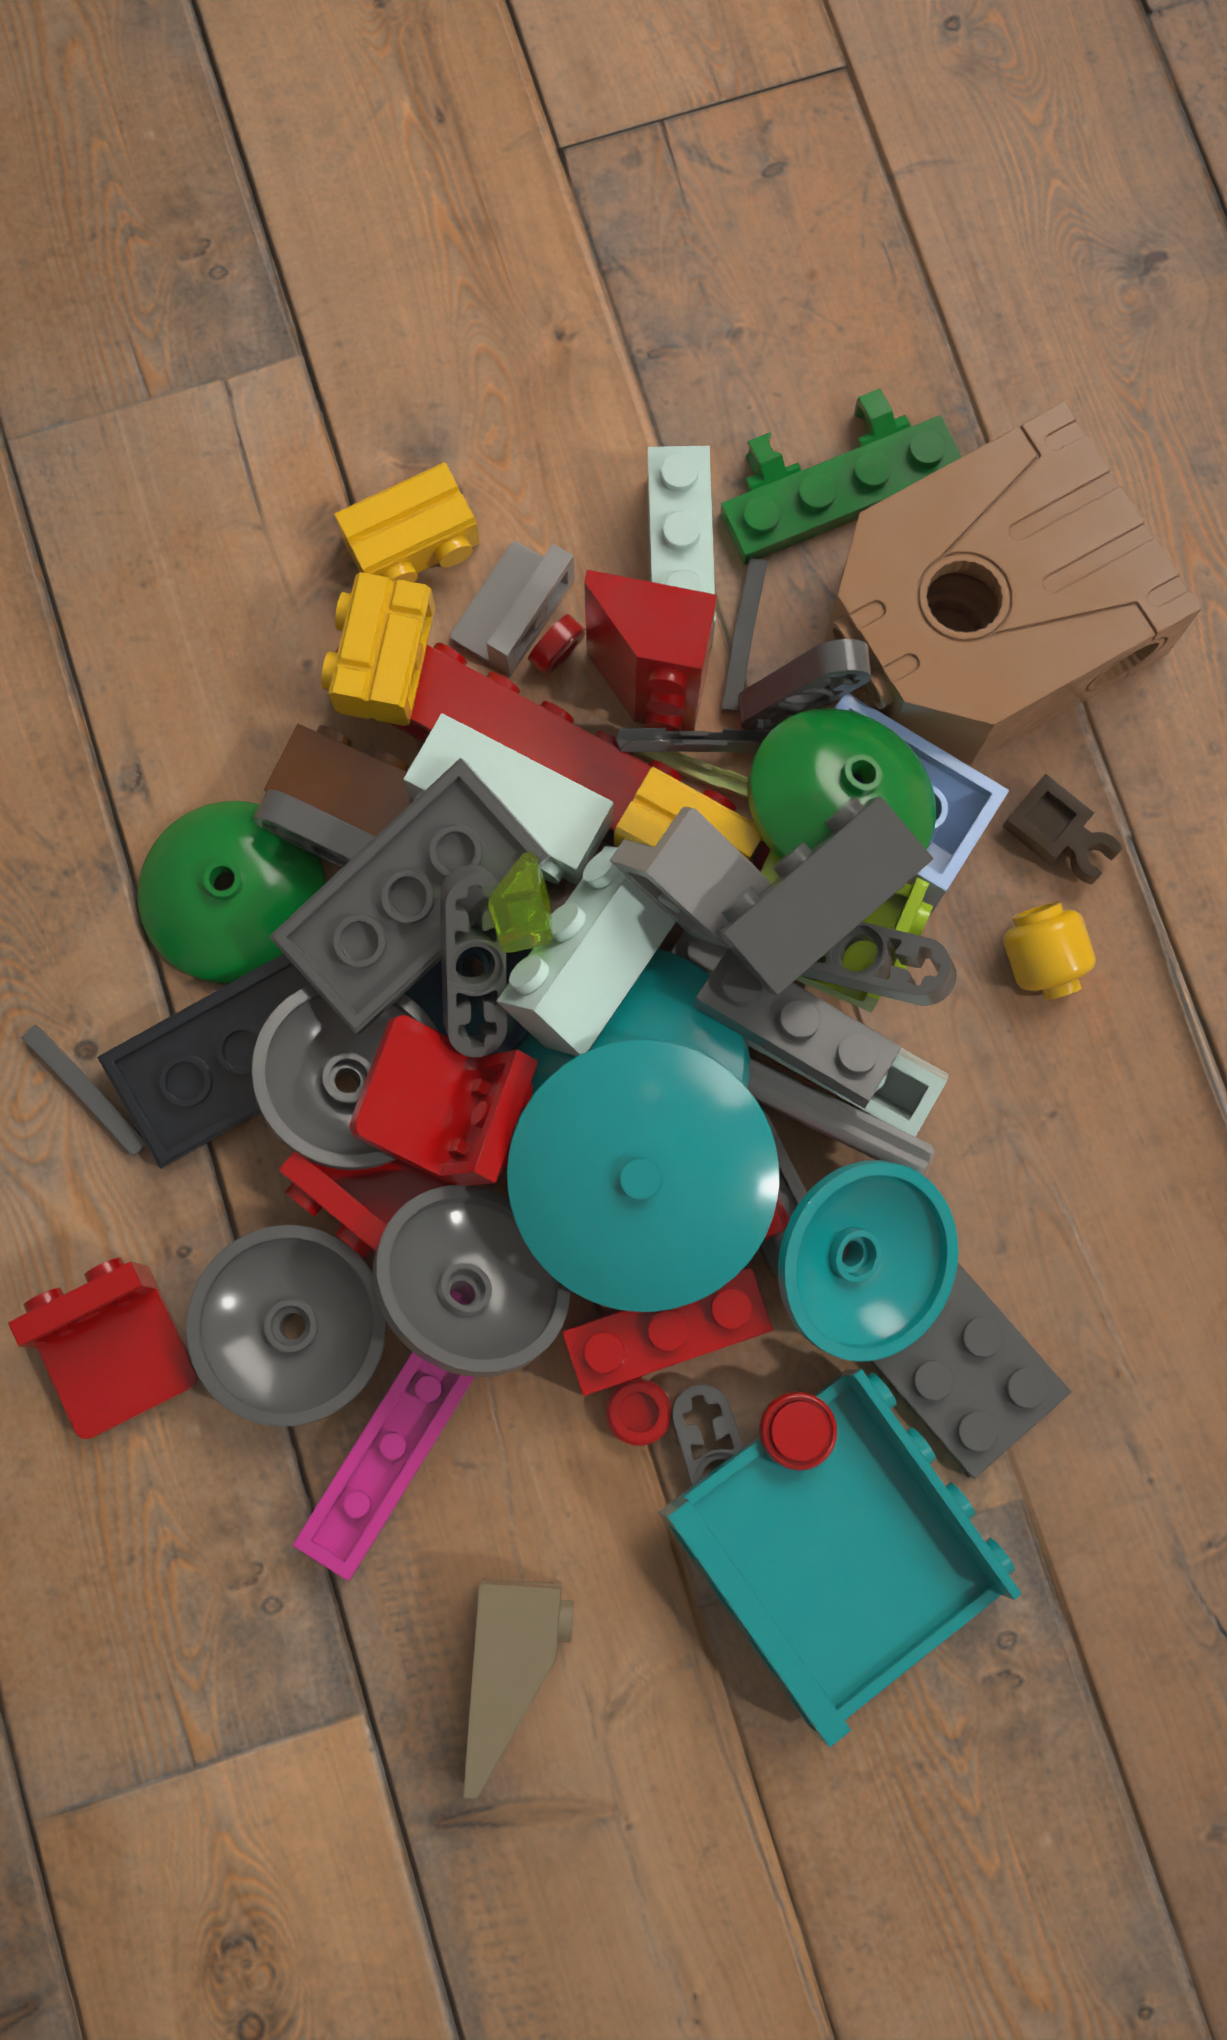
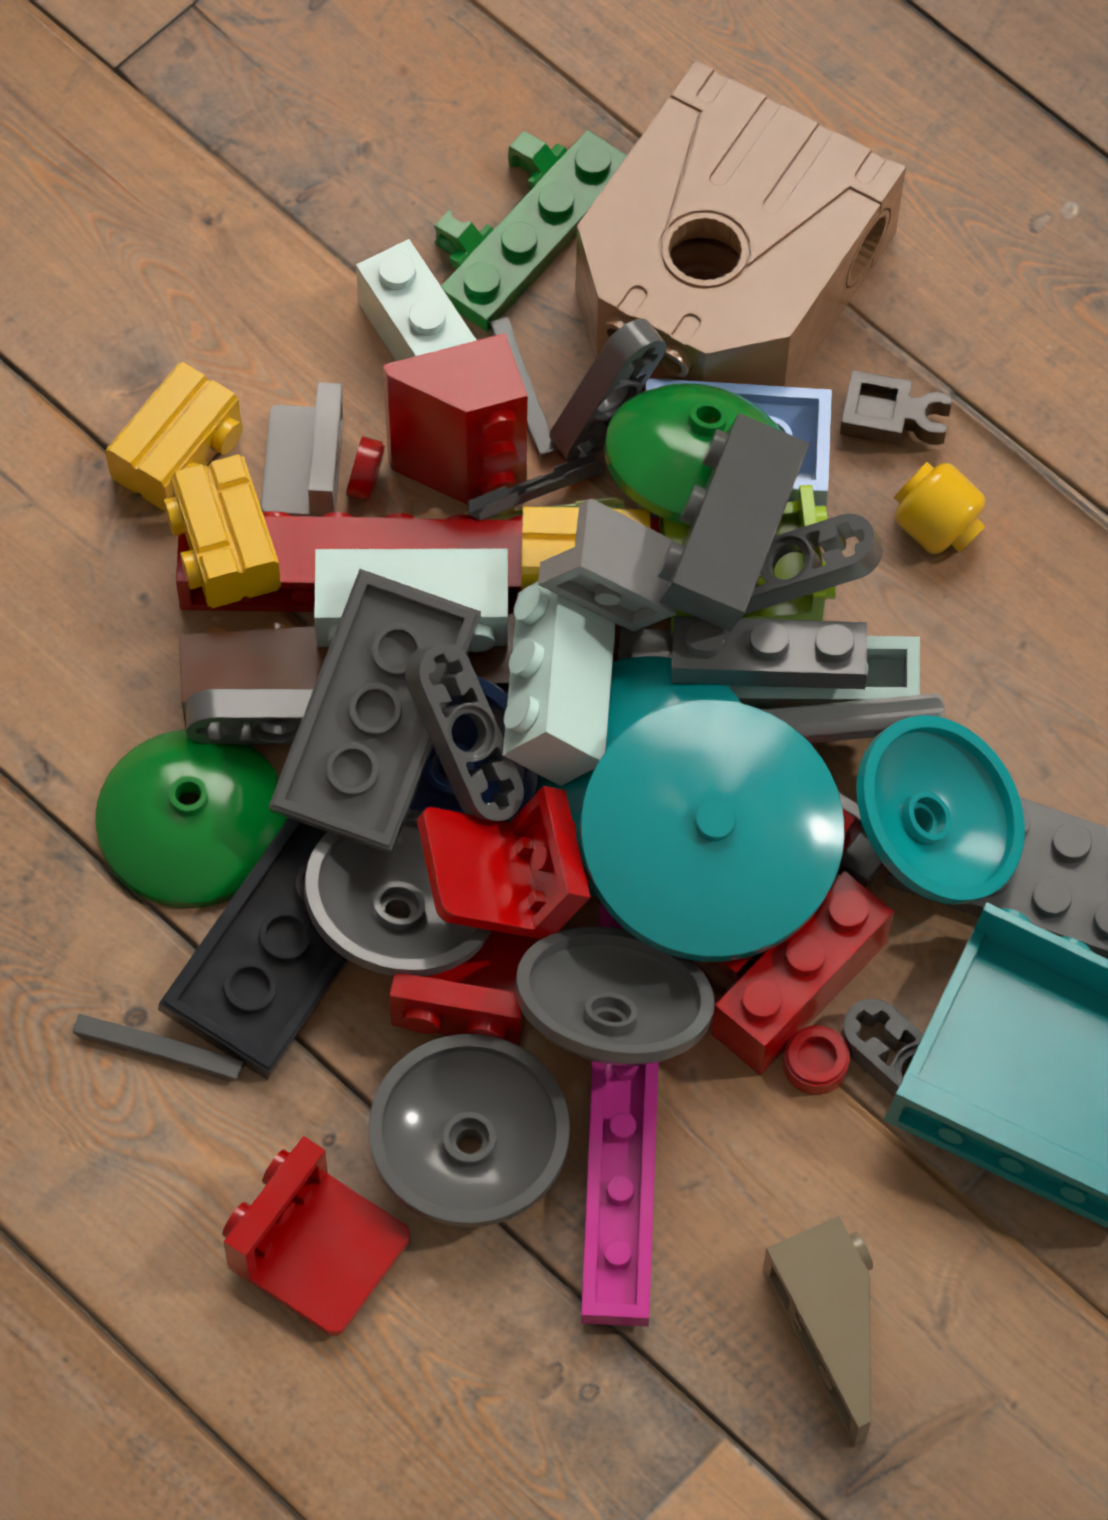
camera: 30 degrees left, 15 degrees down
(522, 907) = (488, 657): clear neon green slope -> none
(798, 1431) = (962, 987): red piece -> none

